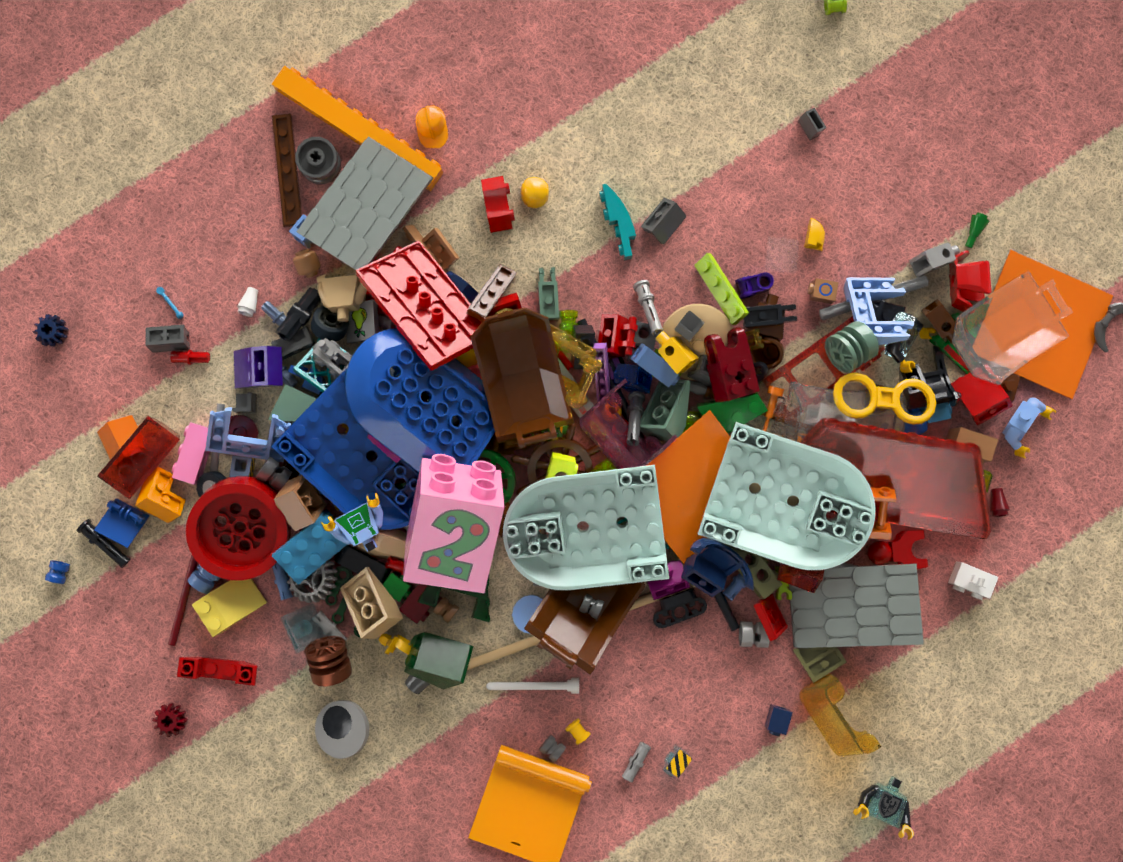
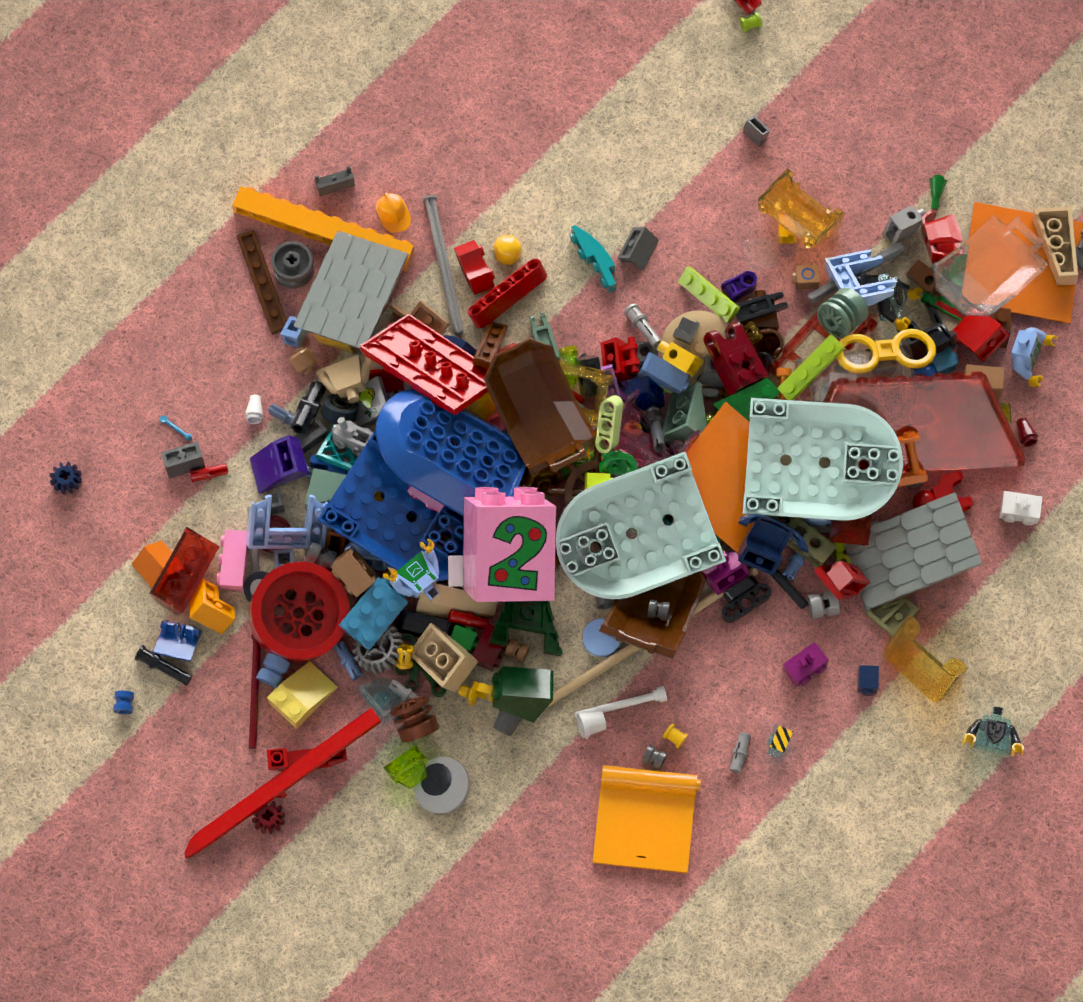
camera: 15 degrees left, 15 degrees down
(190, 692) = (283, 781): none -> red piece
(312, 704) = (408, 768): none -> clear neon green slope
(337, 599) = (405, 663): none -> yellow bush
(380, 81) = (335, 182): none -> dark grey hinge
(400, 523) = (455, 571): none -> white sticker
(468, 193) = (444, 264): none -> light grey axle
(499, 700) = (590, 723): none -> white piece
(522, 239) = (507, 293): none -> red beam
(587, 411) = (614, 416): none -> yellowish green beam
(587, 449) = (617, 463): none -> green hat
(721, 690) = (805, 665): none -> magenta brick
(785, 617) = (848, 577): none -> red brick
(805, 398) = (811, 368): none -> lime plate
(834, 222) = (799, 211): none -> clear yellow windscreen
(1085, 325) = (1057, 231): none -> tan wedge

